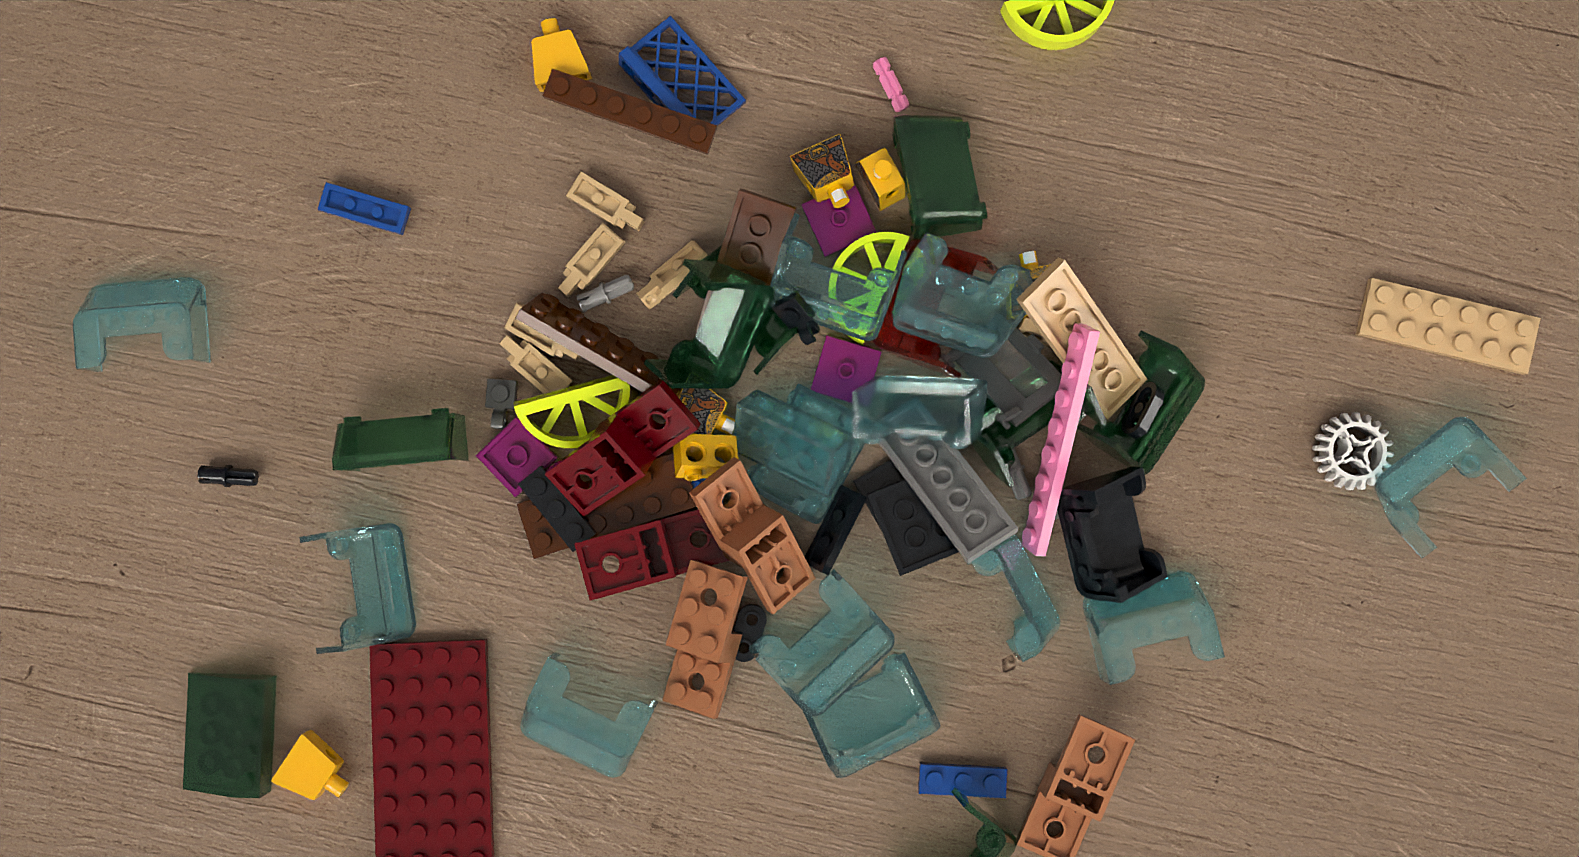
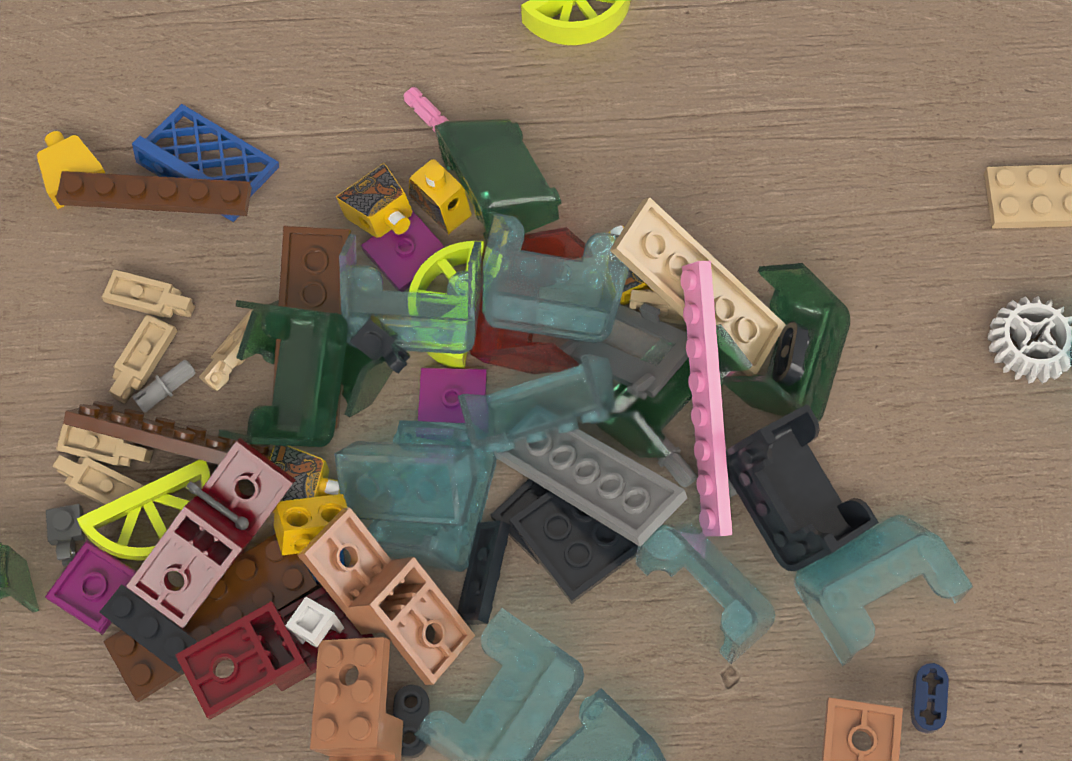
camera: 15 degrees left, 20 degrees down
(648, 447) = (240, 522): none -> dark grey hinge
(688, 544) = (312, 622): none -> white panel
(1166, 727) = (938, 698): none -> dark blue beam

